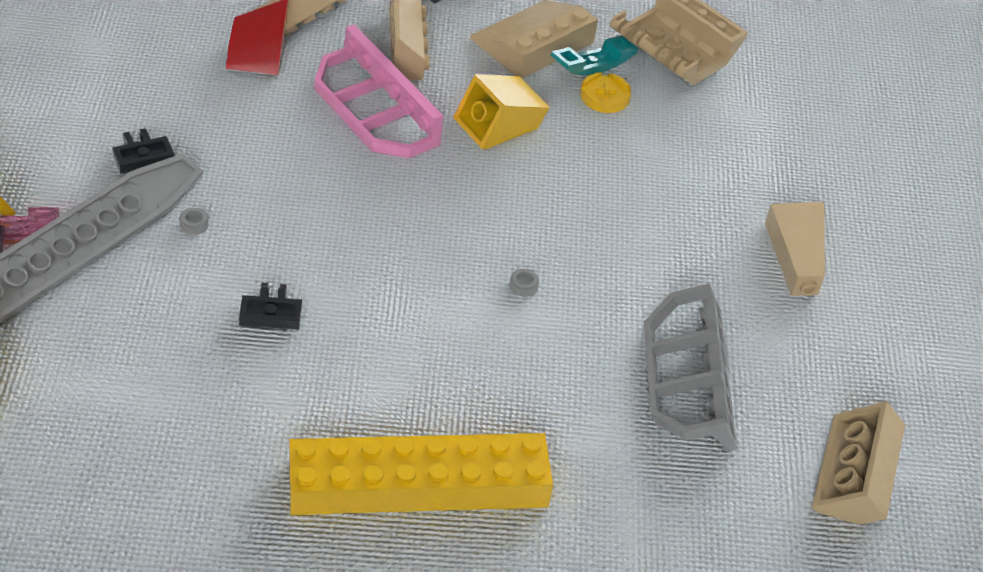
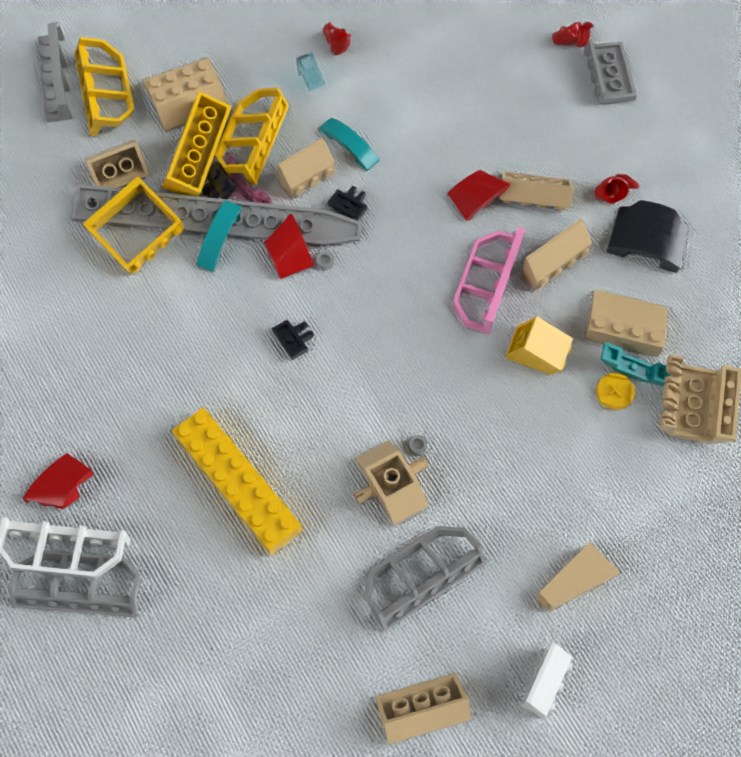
camera: 60 degrees right, 20 degrees up
(50, 292) = (217, 235): none -> teal slope
(54, 155) = (306, 168): none -> tan slope
(55, 98) = (350, 141): none -> teal slope
(143, 235) = (288, 248): none -> red slope
(553, 324) = (398, 498): none -> tan slope
(900, 337) = (547, 681): none -> white slope

